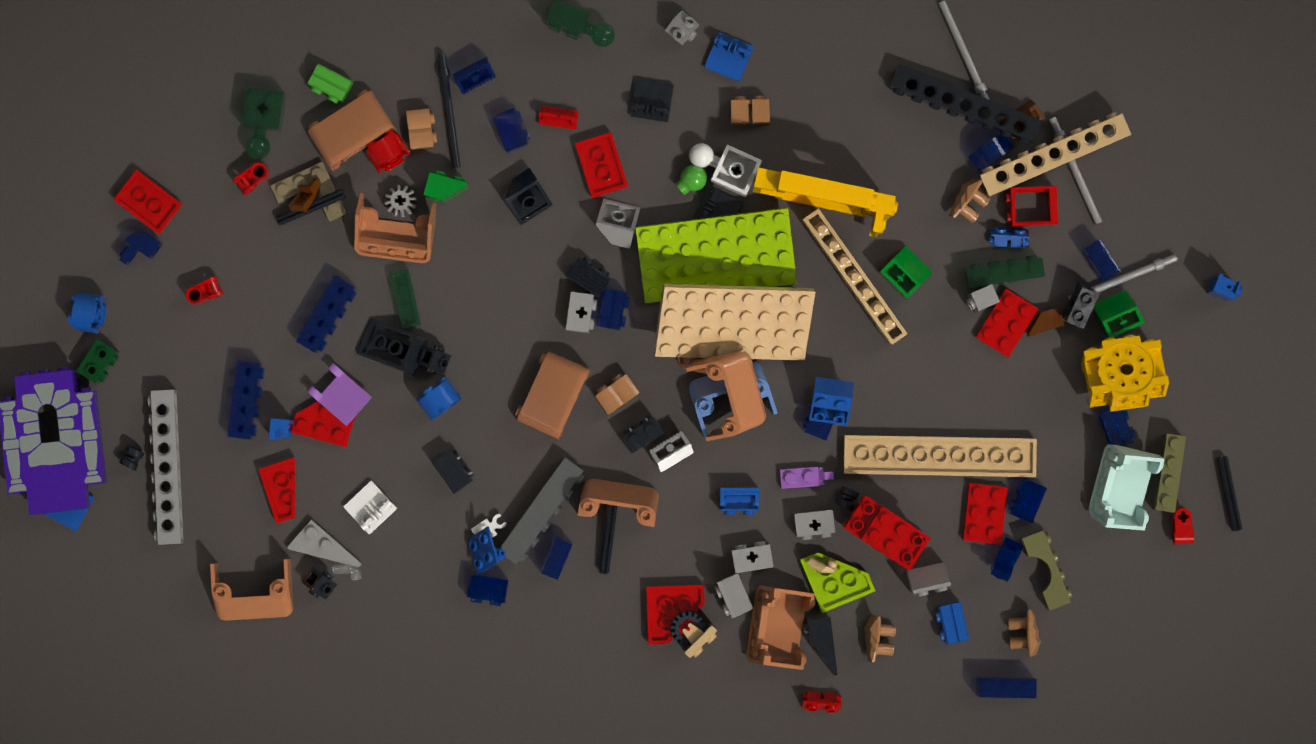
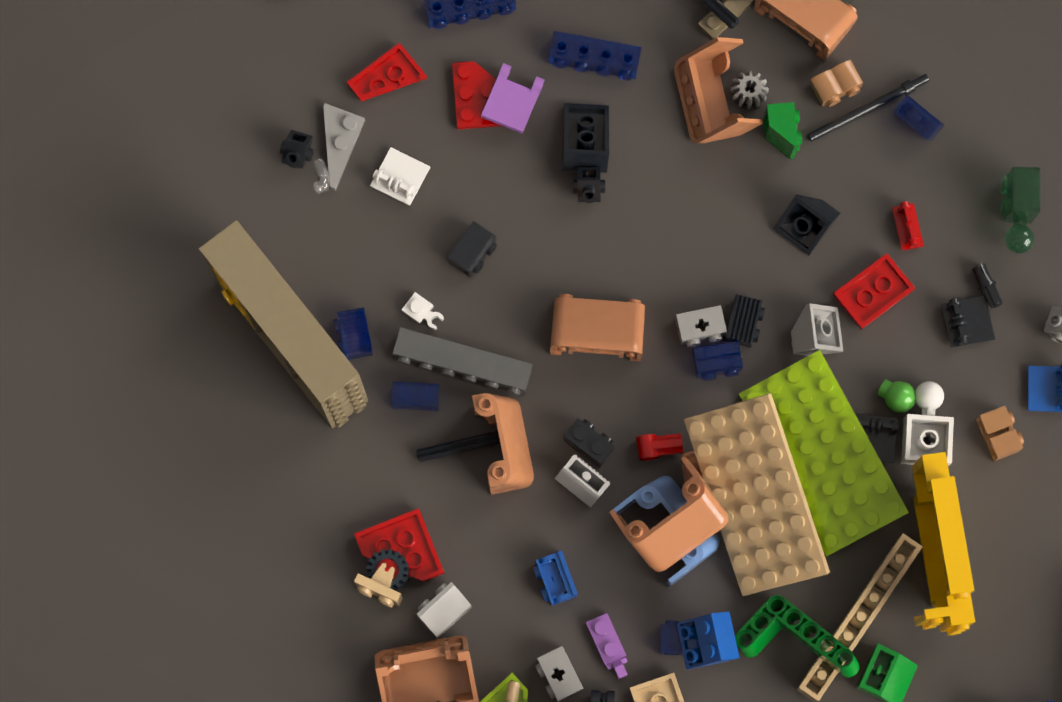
camera: 70 degrees right, 10 degrees down
(275, 605) = (259, 112): nougat windscreen -> none
(280, 427) = (452, 44): blue hinge -> none
(387, 152) = (797, 55): red brick -> none
(405, 299) = (643, 133): clear green plate -> none
(438, 398) = (547, 204): blue brick -> none
(470, 643) = (285, 324): none -> dark tan container
(484, 552) = (391, 315): blue hinge -> none
(510, 130) = (873, 179): clear blue brick -> none
(616, 394) = (625, 398): medium nougat brick -> none
(630, 73) = (988, 286): none -> black axle
(663, 384) = (653, 446): none -> red piece
(742, 564) = (483, 609): light grey brick -> none
(849, 326) = (801, 631): none -> green beam

